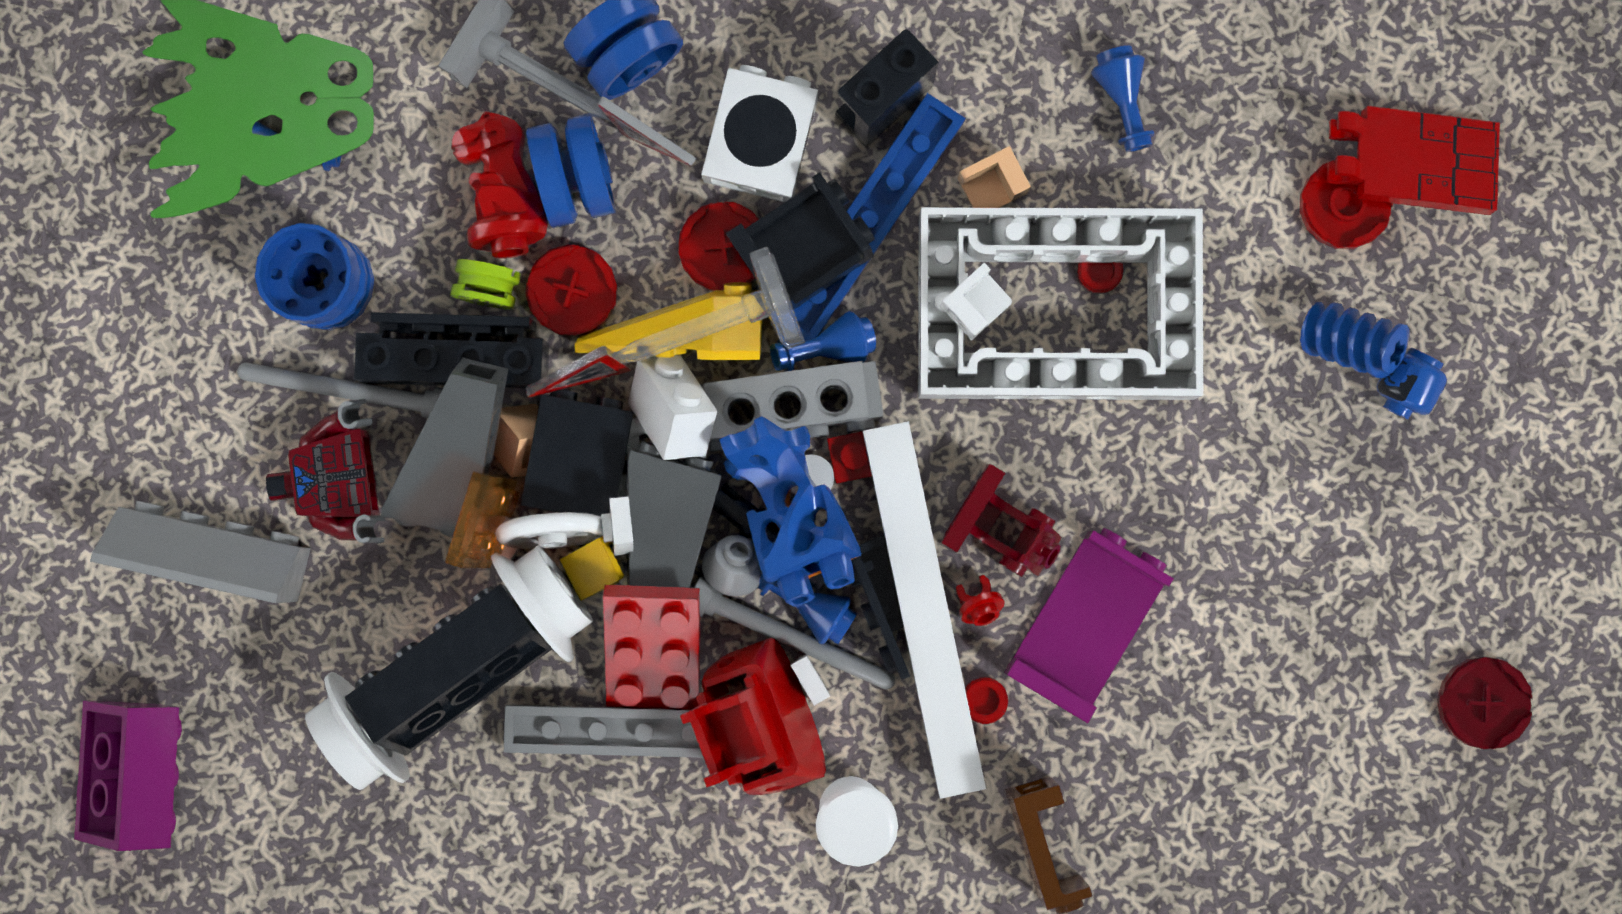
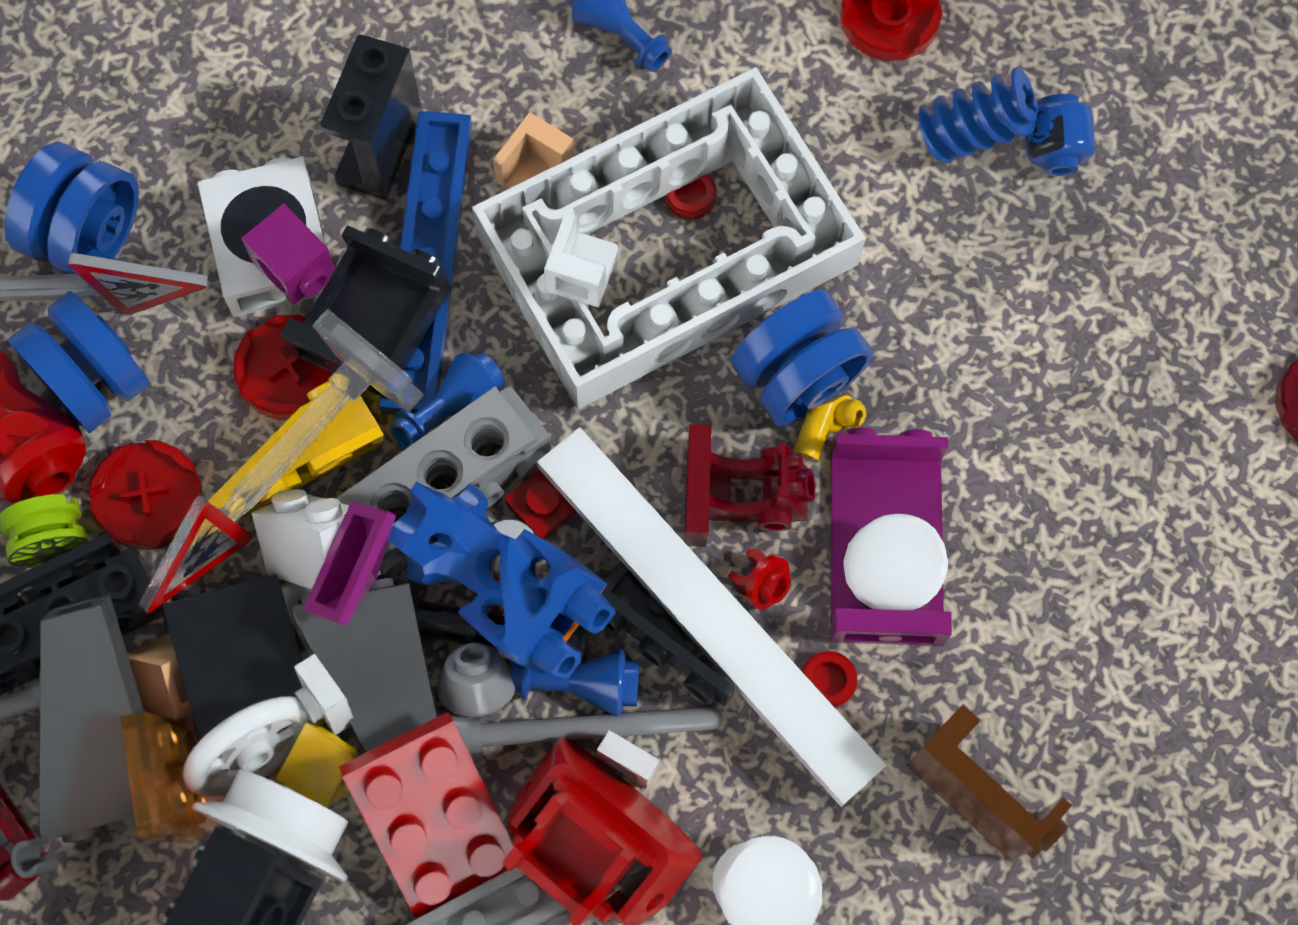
camera: 35 degrees left, 15 degrees down
(684, 449) = (351, 564): none -> magenta slope
(765, 174) = (289, 255): none -> magenta brick
(1079, 649) = (896, 563): none -> white piece
(1096, 507) = (830, 417): none -> yellow arm
(1102, 461) = (801, 357): none -> blue wheel

